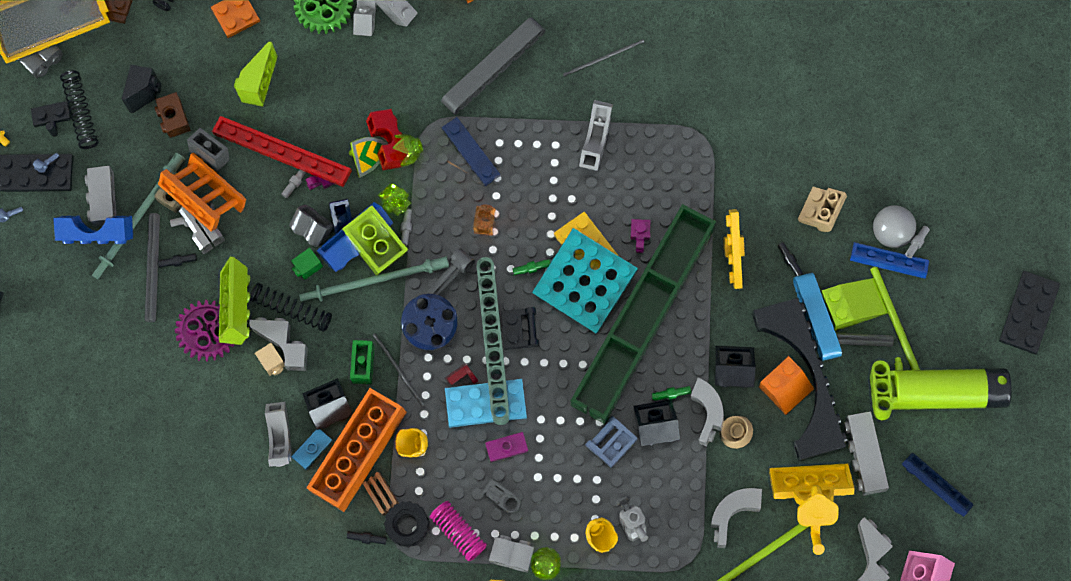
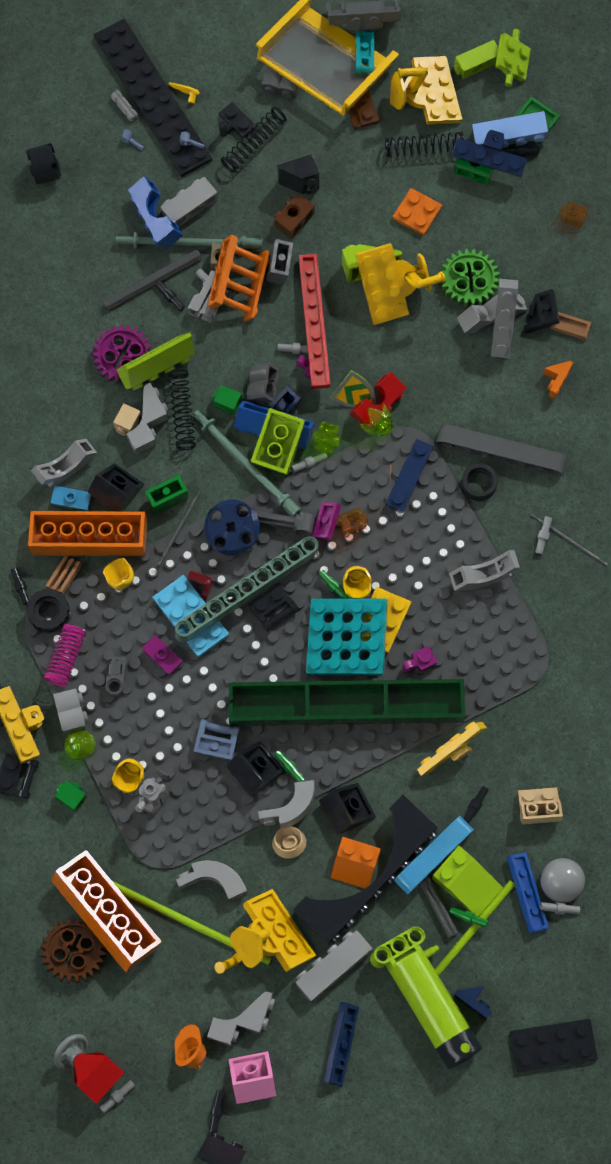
camera: 55 degrees right, 0 degrees up
(288, 67) = (391, 280): none -> yellow plate
(470, 241) = (326, 521): none -> magenta plate
(514, 112) = (479, 496): none -> black tyre
(541, 245) = (357, 582): none -> yellow hair
(588, 75) = (543, 535): none -> light grey bar
(885, 318) = (469, 917): none -> green bar
(955, 356) = (468, 998): none -> dark blue slope

